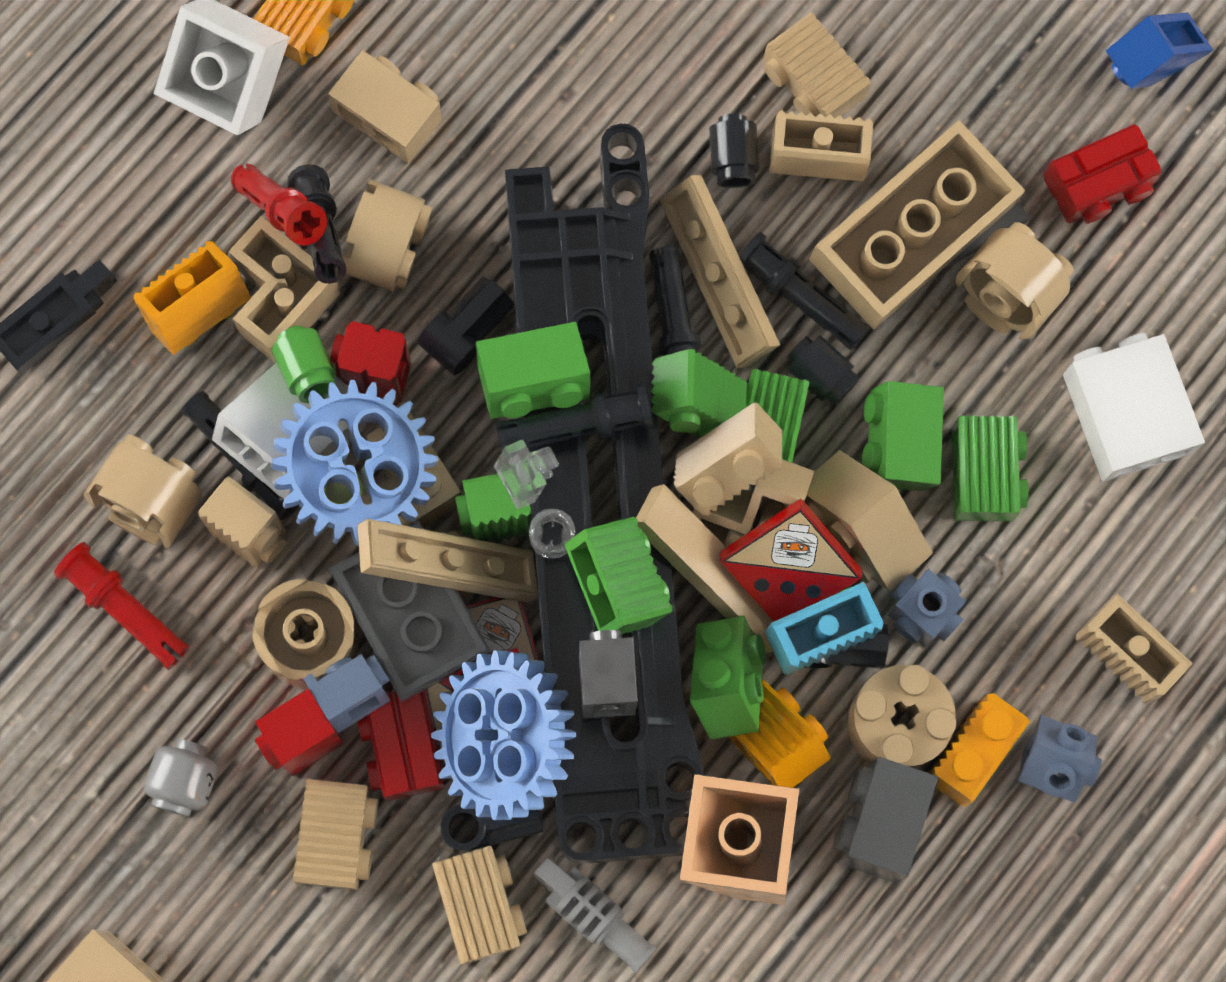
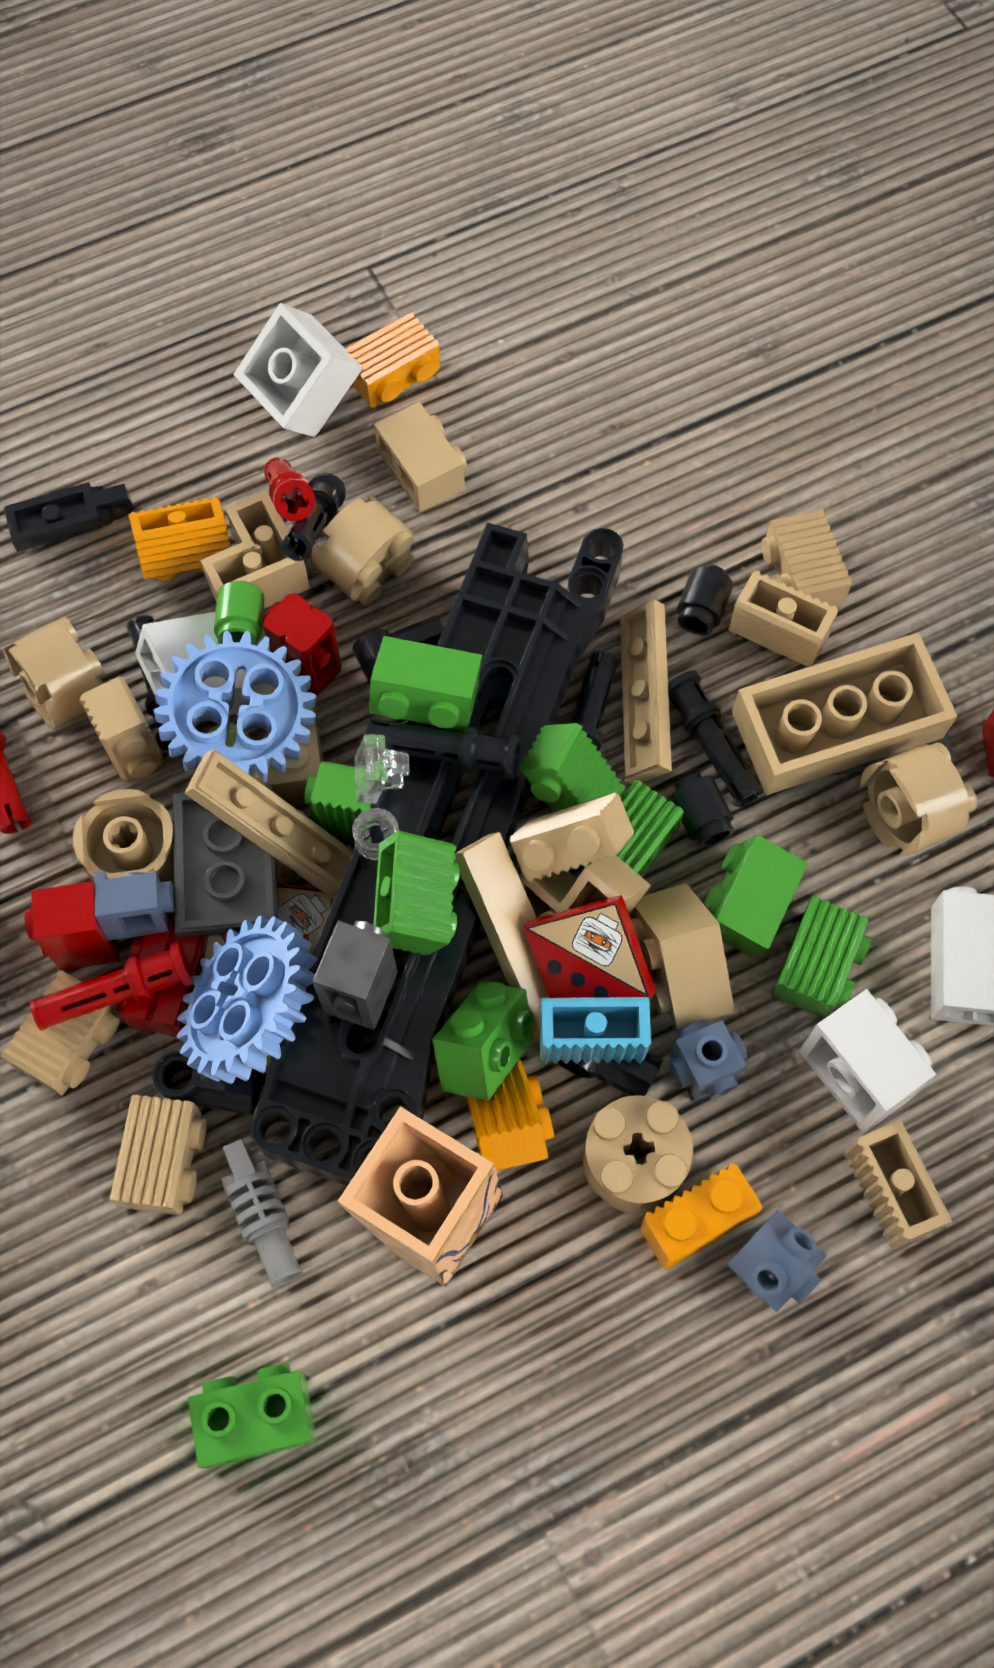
camera: 30 degrees right, 10 degrees down
(389, 759) = (137, 979): none -> red pin
(885, 819) = (576, 1241): dark grey piece -> none
(1067, 551) = (867, 1060): none -> white brick

